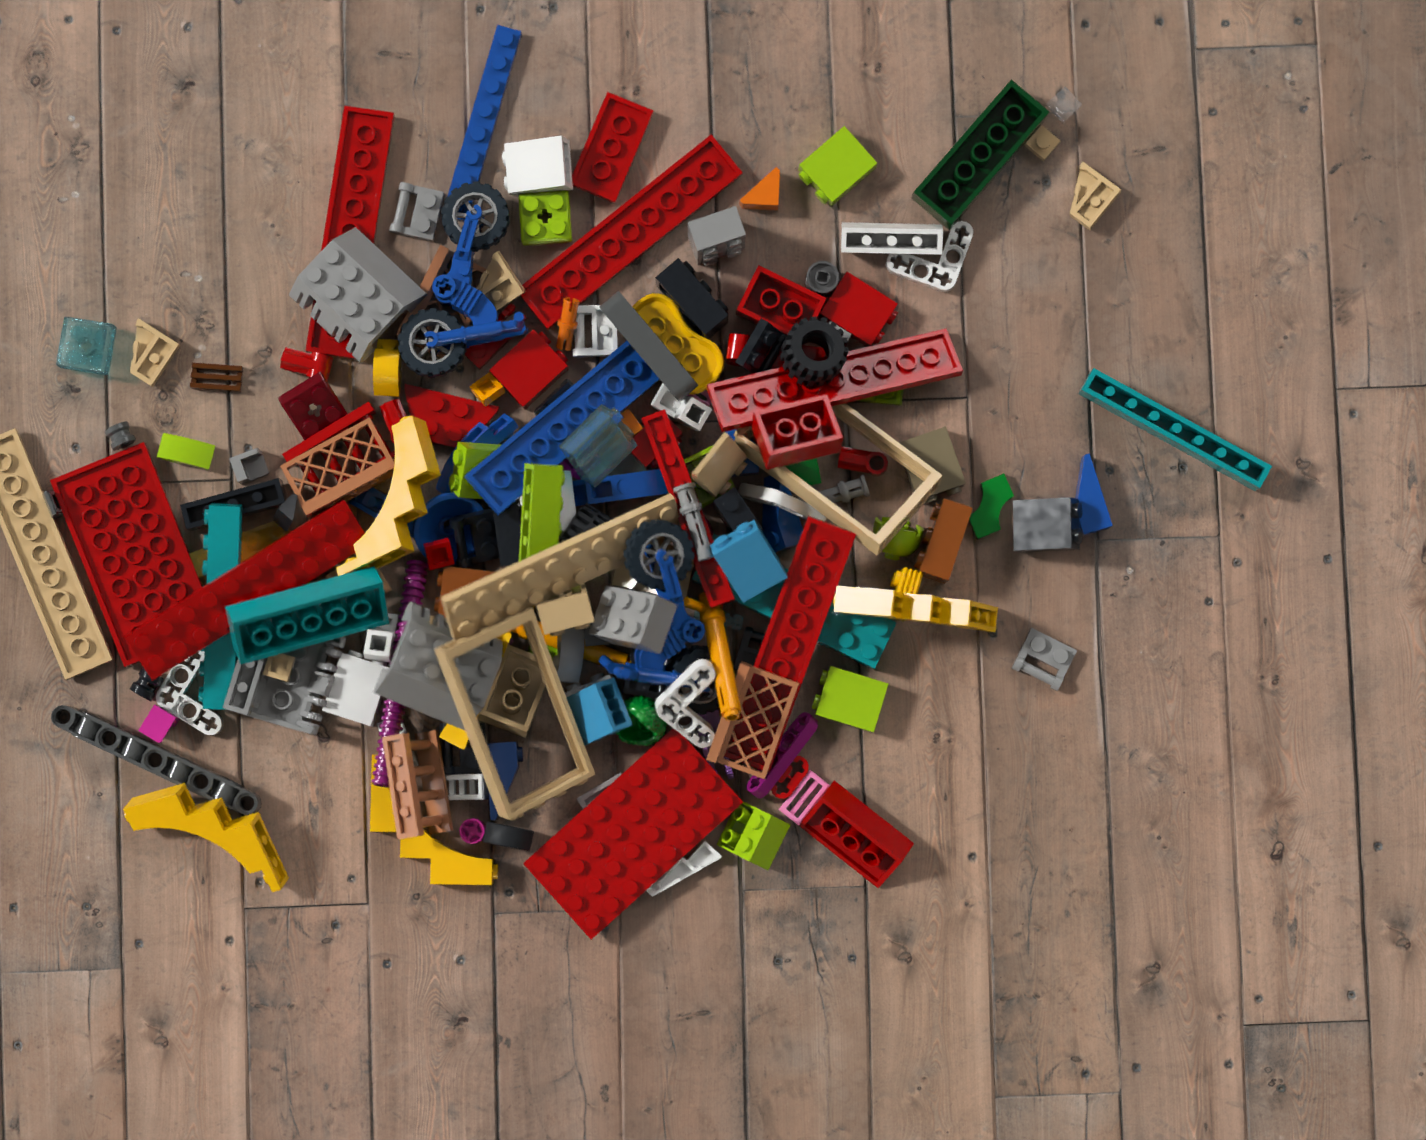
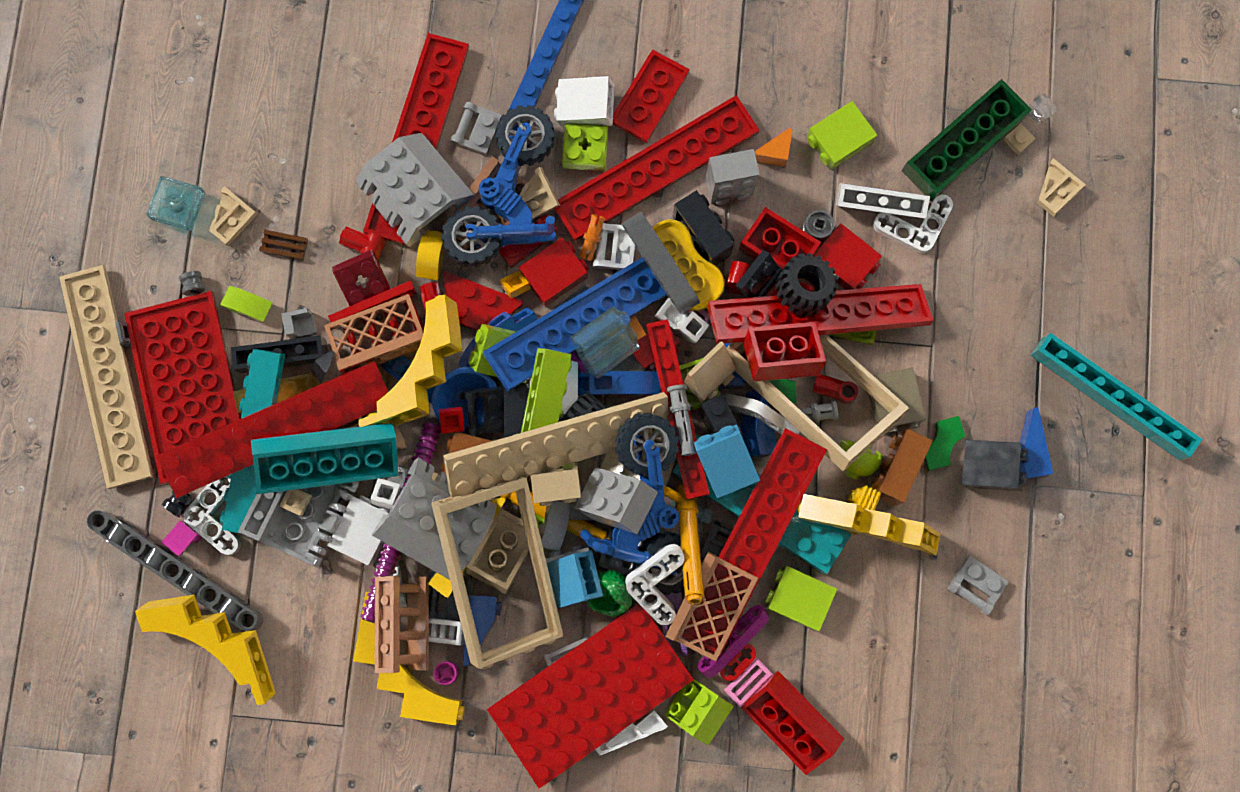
camera: 10 degrees right, 5 degrees down
(508, 836) = (477, 682): black tyre -> none

